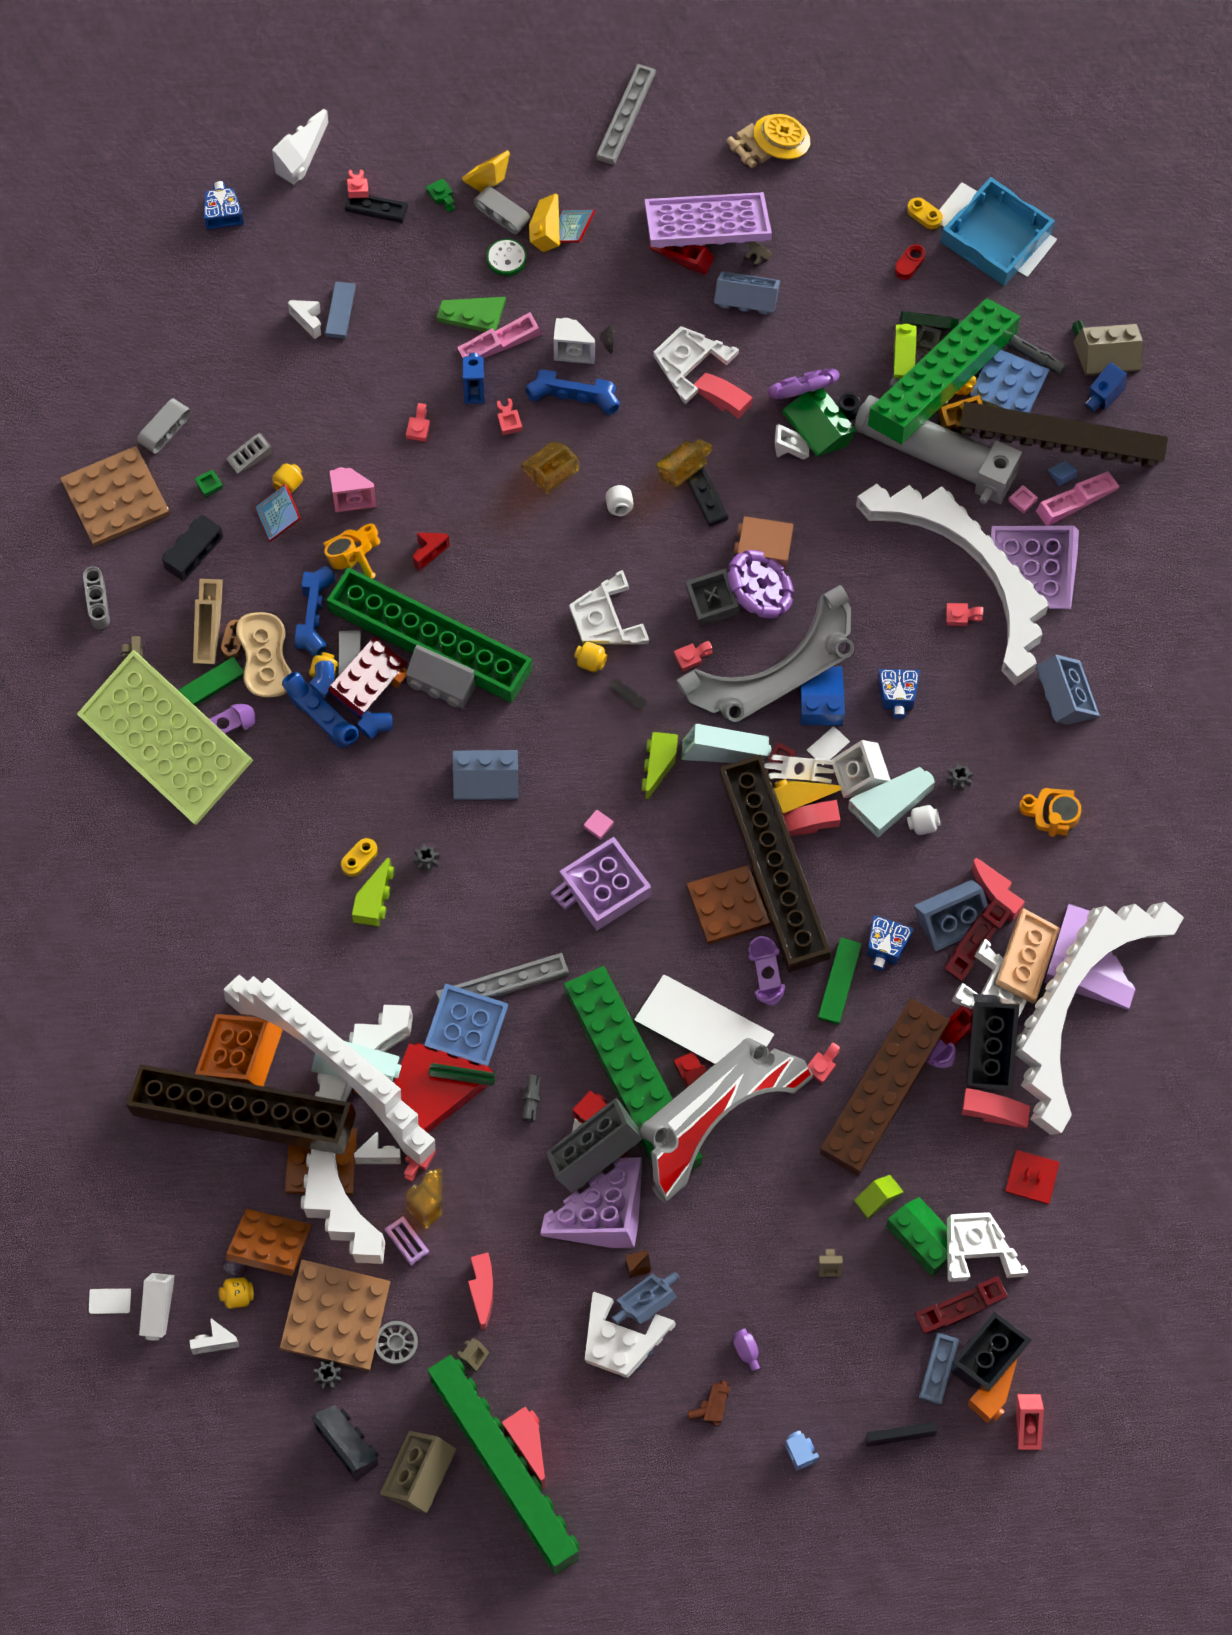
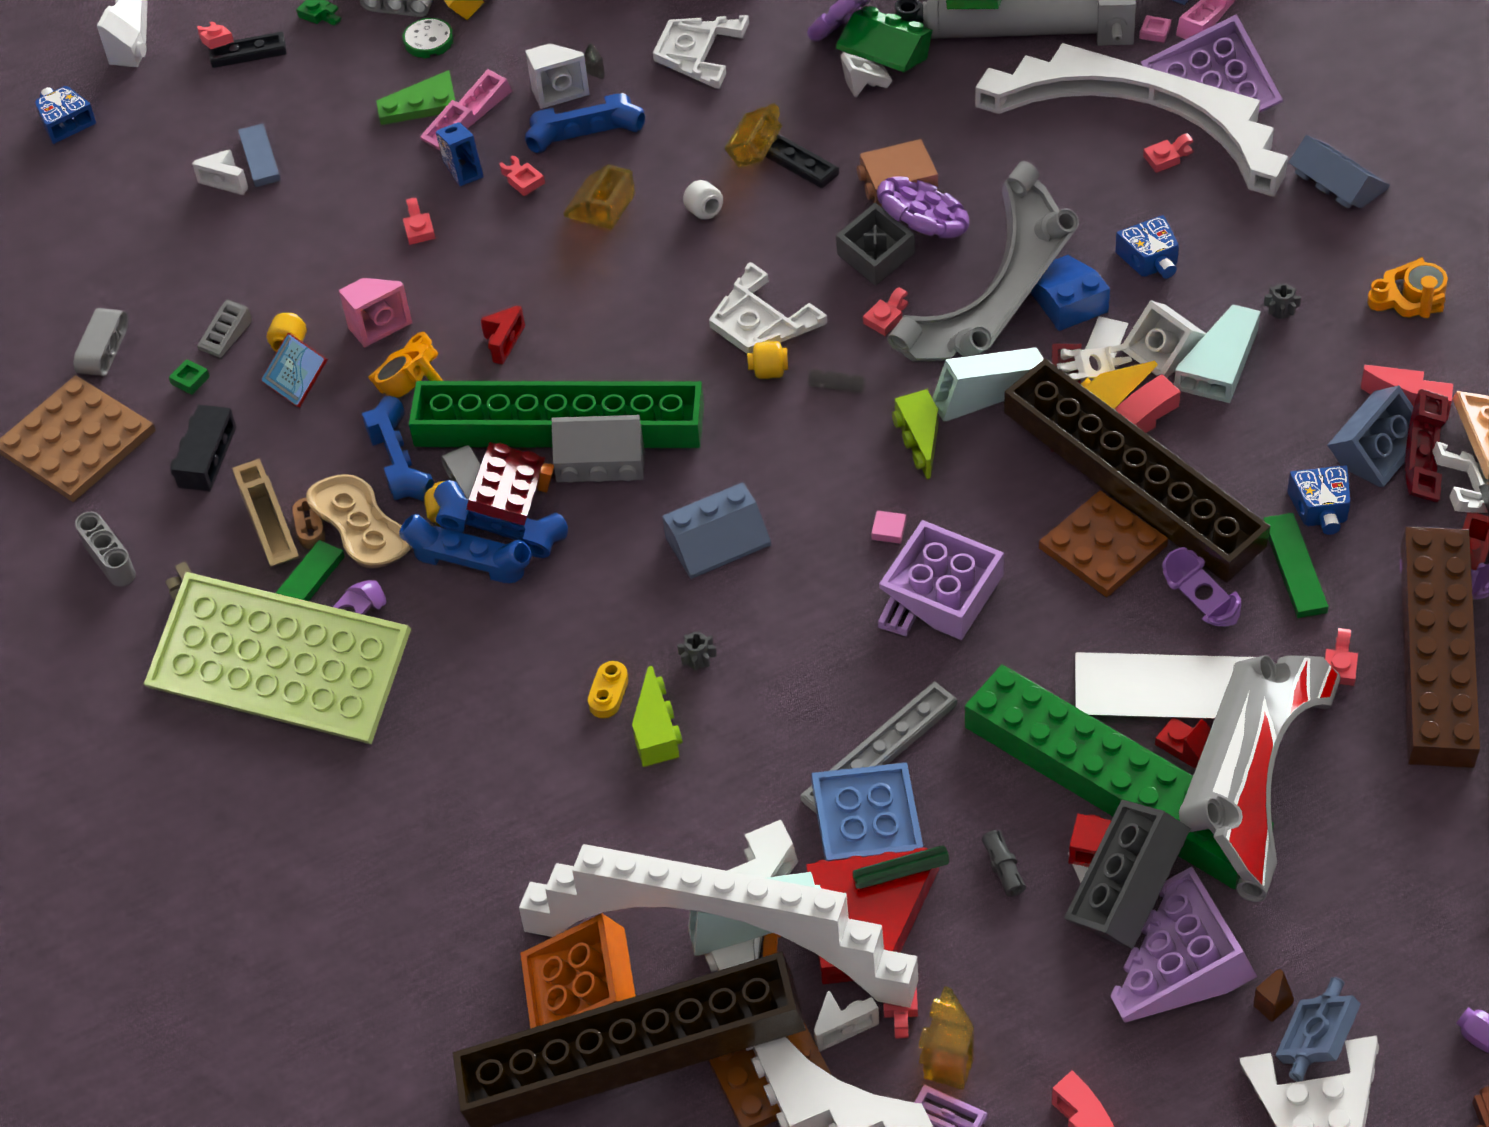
camera: 20 degrees left, 15 degrees down
(723, 394) = (759, 60): coral slope -> none
(924, 820) = (1273, 358): white head -> none

